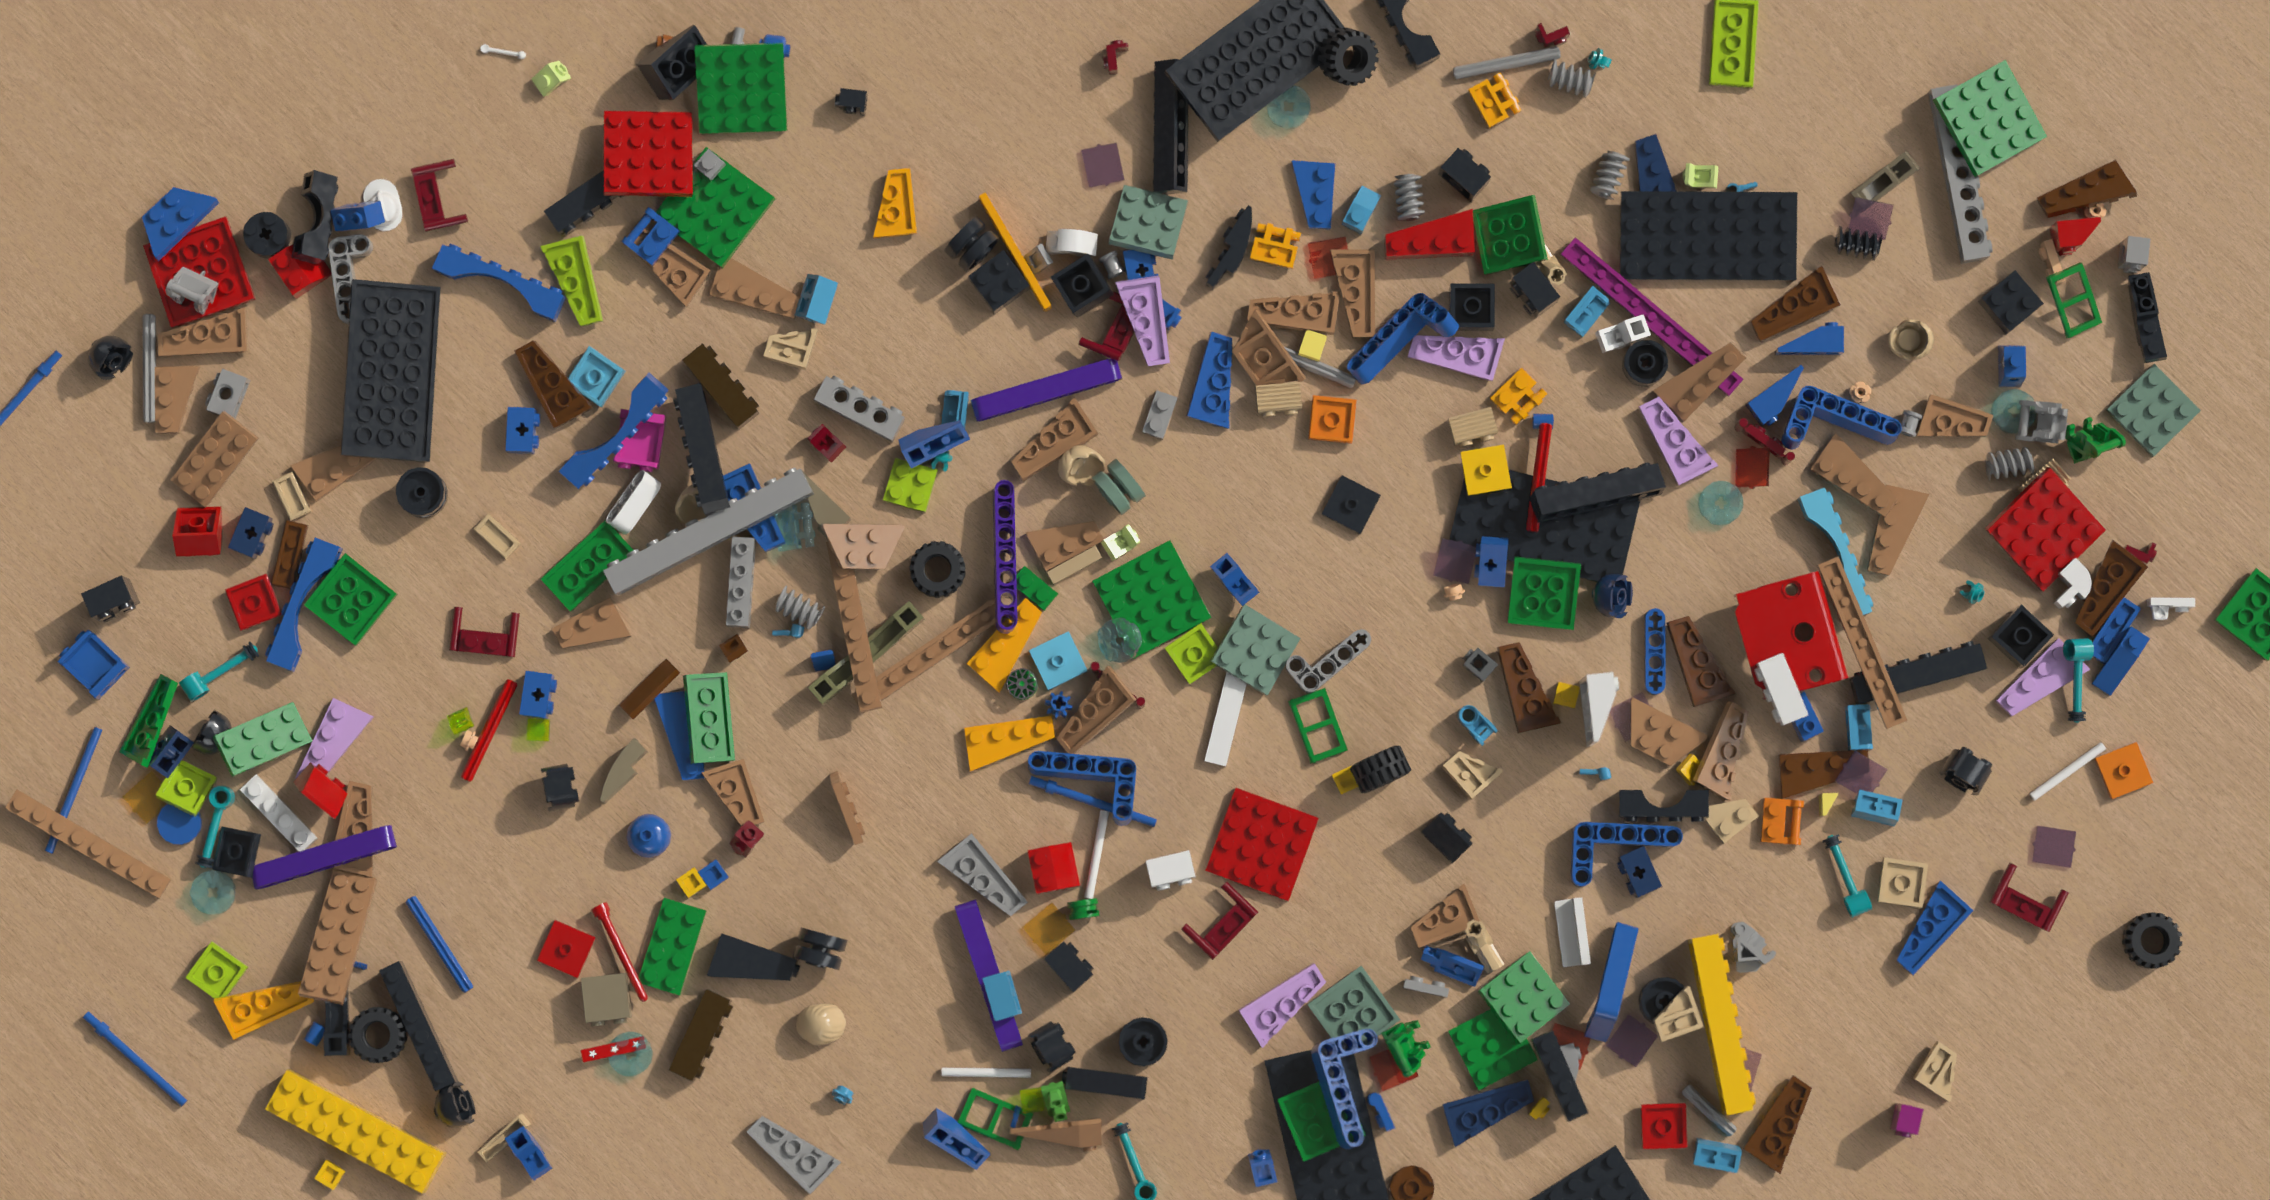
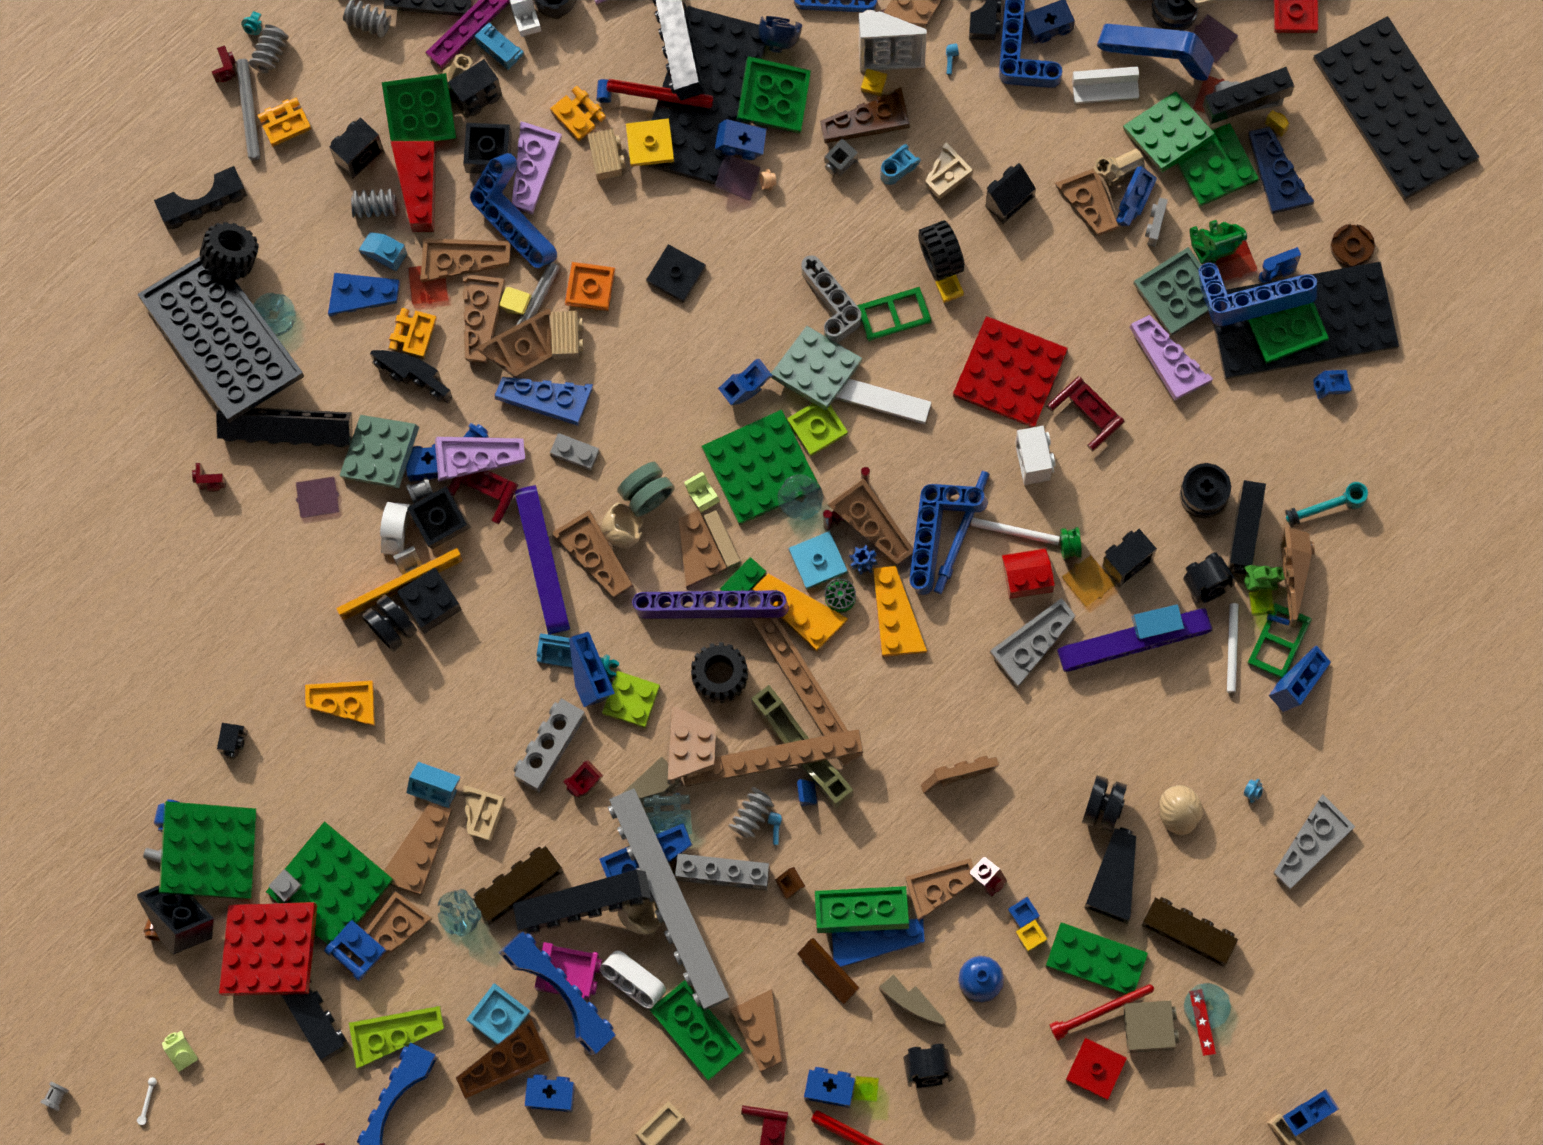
camera: 85 degrees left, 10 degrees down
(689, 341) = (469, 913): none -> clear light blue plate

